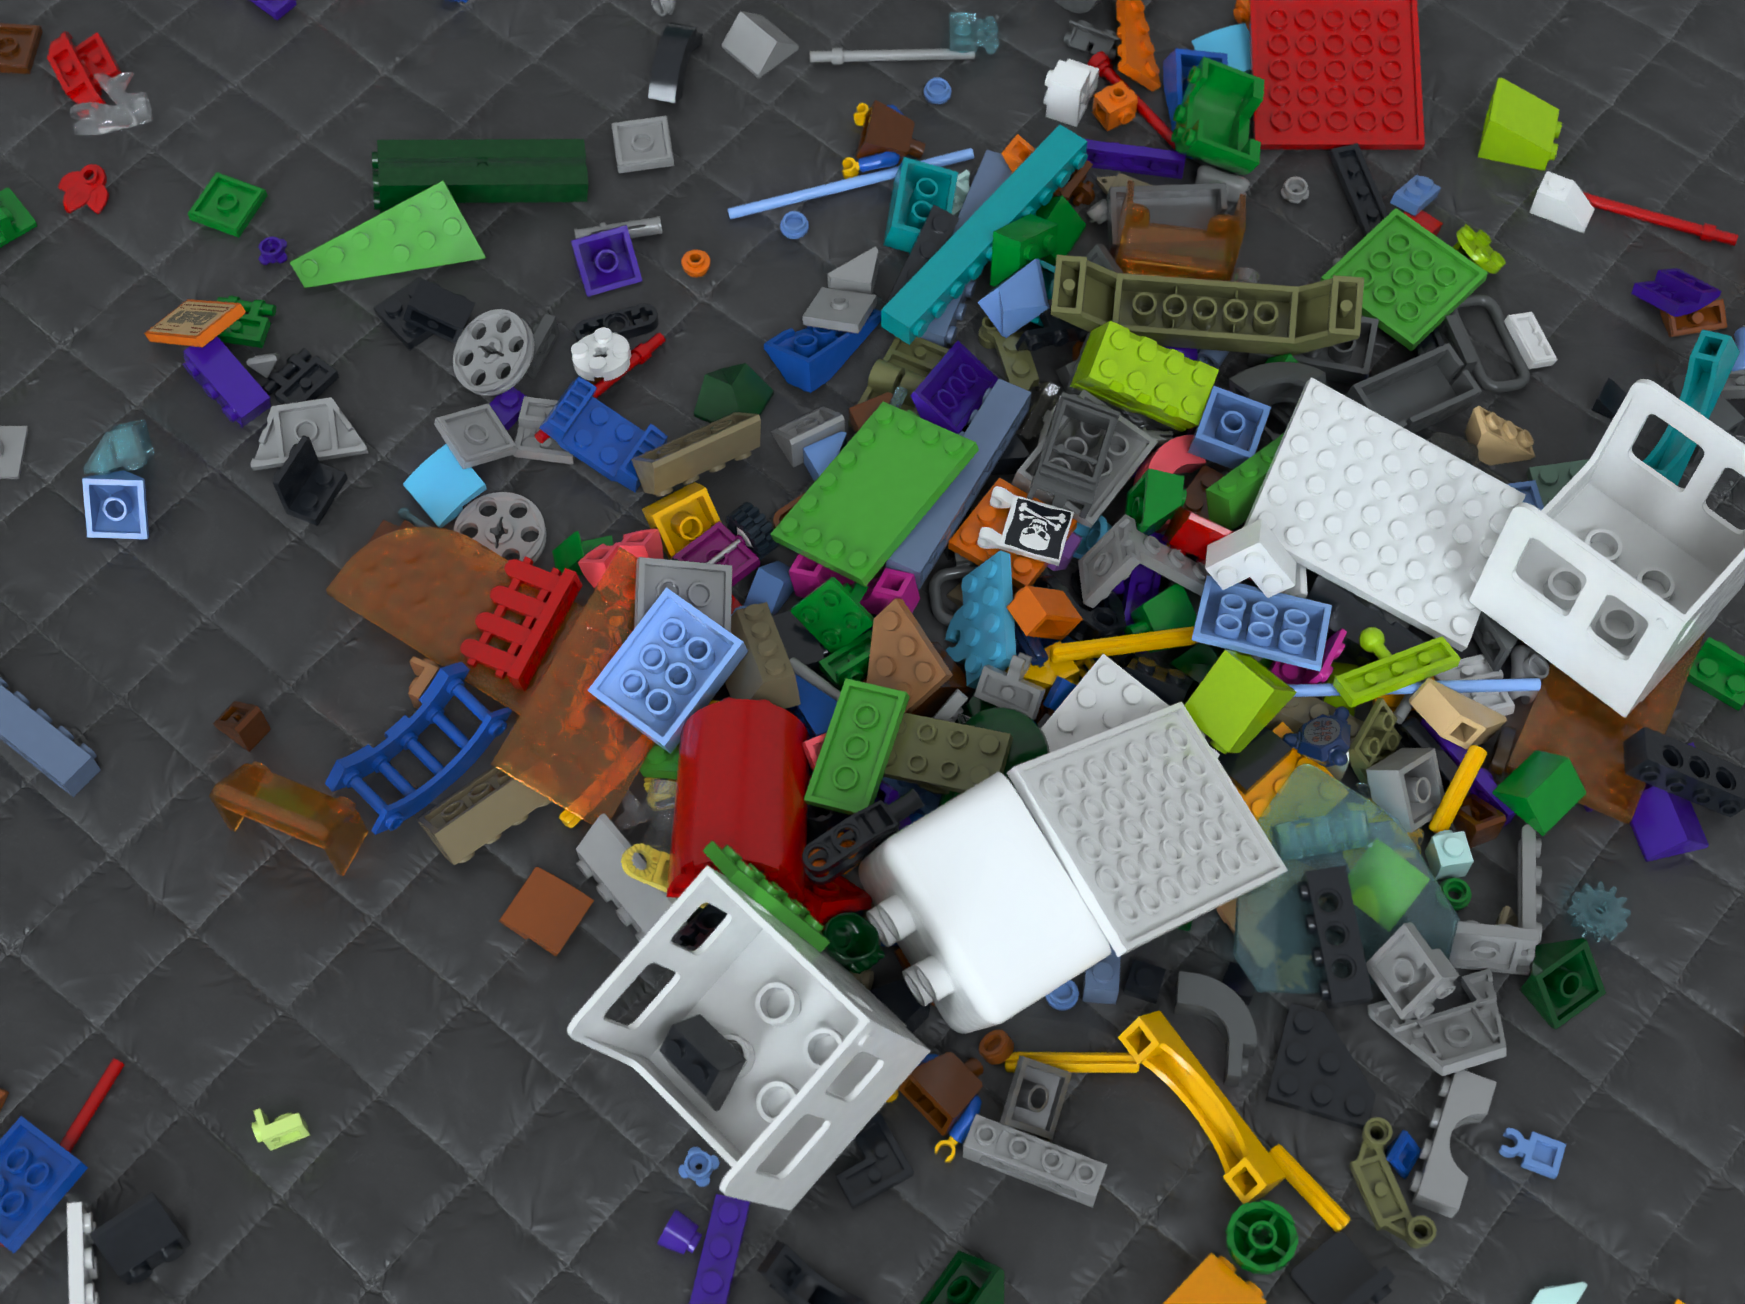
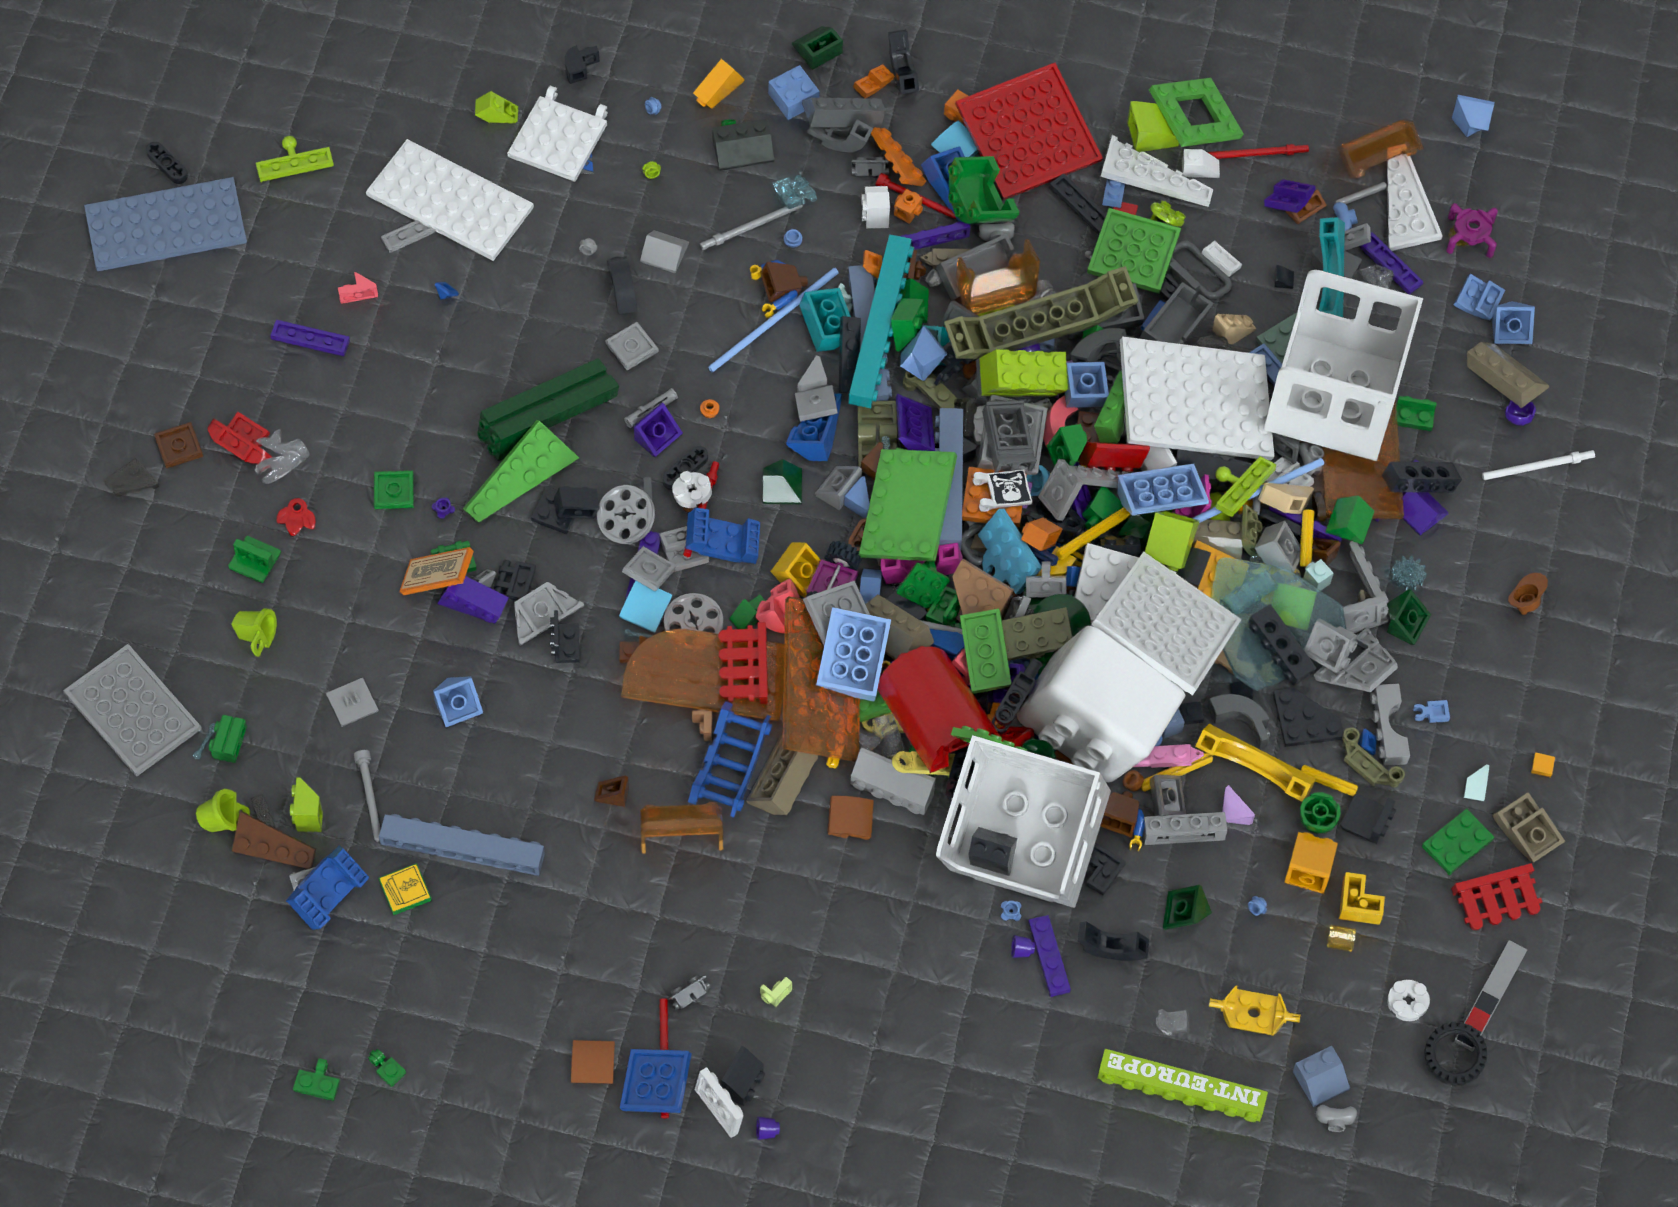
camera: 30 degrees left, 0 degrees up
(121, 446) = (438, 665): clear light blue slope -> none
(143, 1068) = (681, 995): none -> hinge
(698, 452) = (785, 523): dark tan slope -> none
(794, 225) = (755, 360): medium blue plate -> none
(1069, 1034) = (1171, 756): none -> bright pink plate
(1130, 1166) = (1235, 809): none -> lavender slope
(1252, 554) = (1140, 453): white brick -> none
(1294, 185) = (1041, 213): light grey plate -> none
(1323, 738) = (1225, 540): dark blue rock -> none
(1461, 888) = (1333, 592): green plate -> none
(1480, 186) = (1151, 174): none -> white wing
(1556, 96) = (1167, 99): none -> bright green plate

